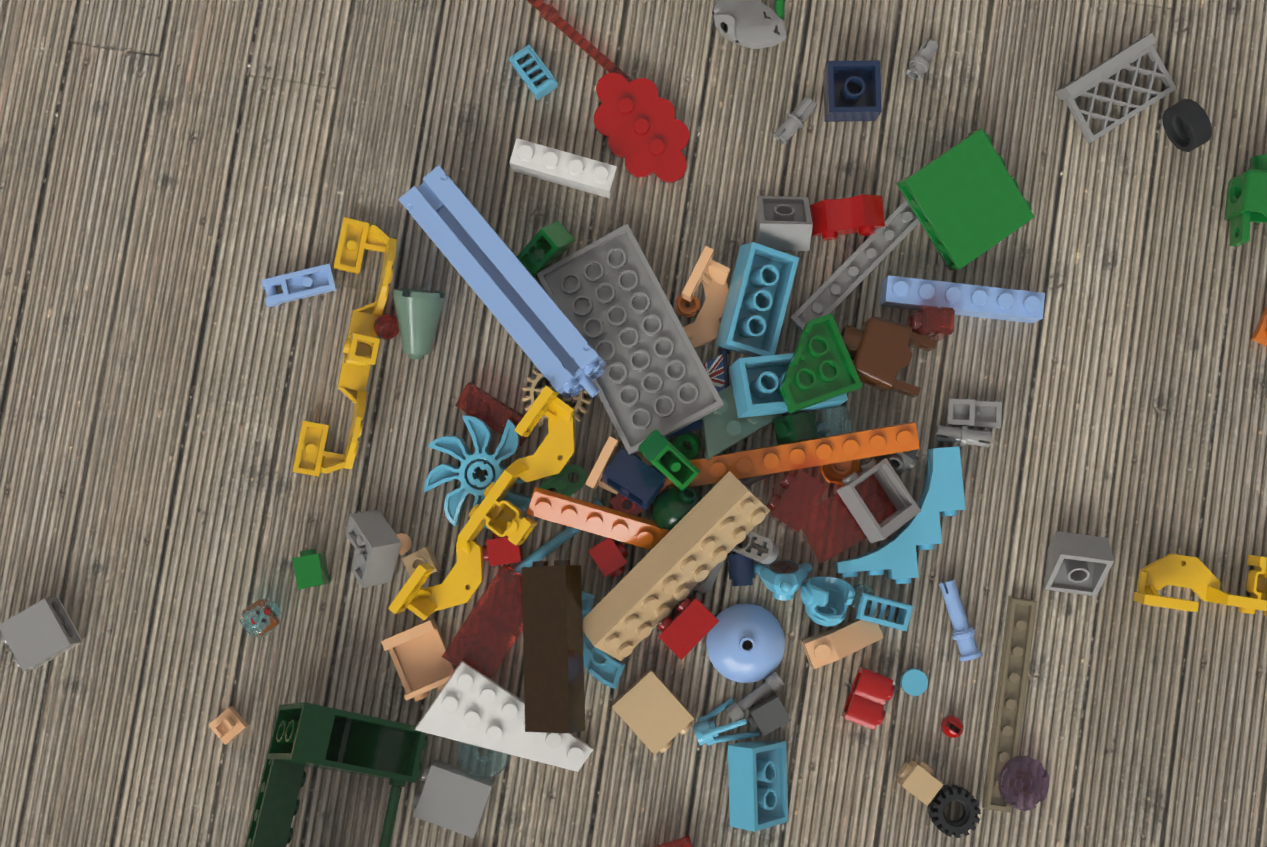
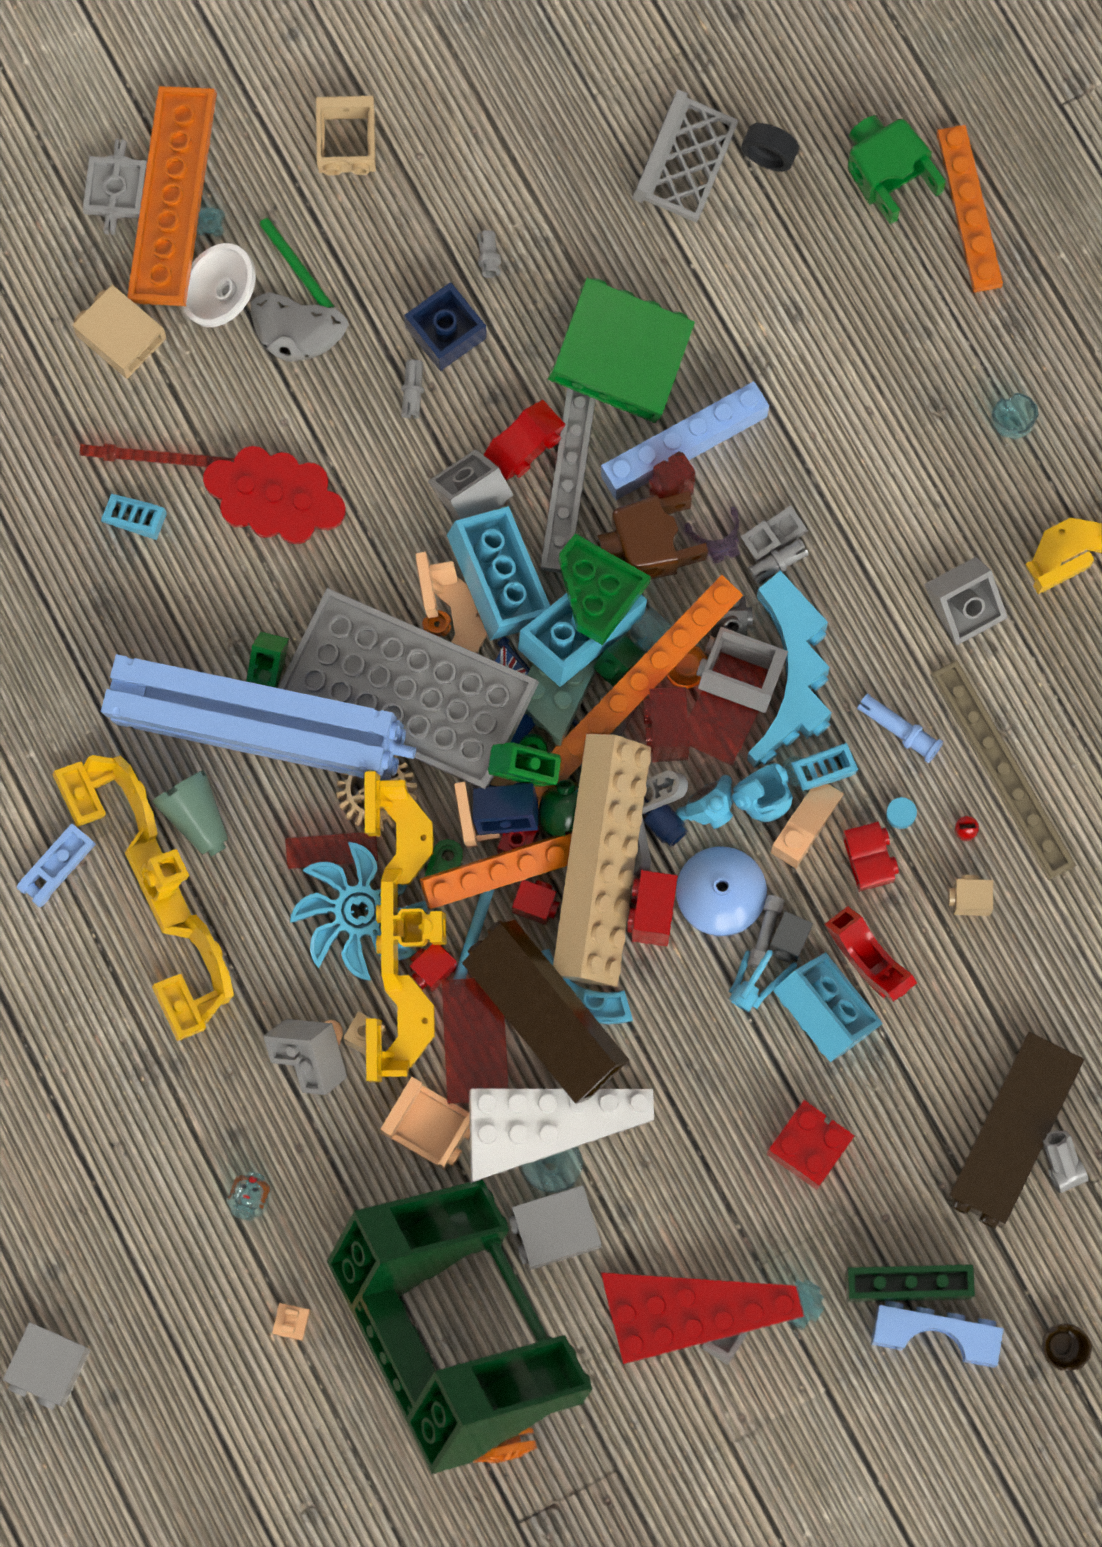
camera: 35 degrees left, 10 degrees down
(310, 569) = (263, 1116): green brick -> none
(386, 326) = (170, 839): clear red plate -> none
(563, 168) = (229, 581): white brick -> none
(653, 712) = (682, 1012): tan brick -> none
(813, 774) = (868, 956): none -> red arch
(928, 396) = (722, 547): none -> clear purple helmet
(969, 815) = (1036, 887): black tyre -> none
(1023, 783) = (1067, 829): clear purple tile -> none
(1214, 455) = (1015, 416): none -> clear light blue hair

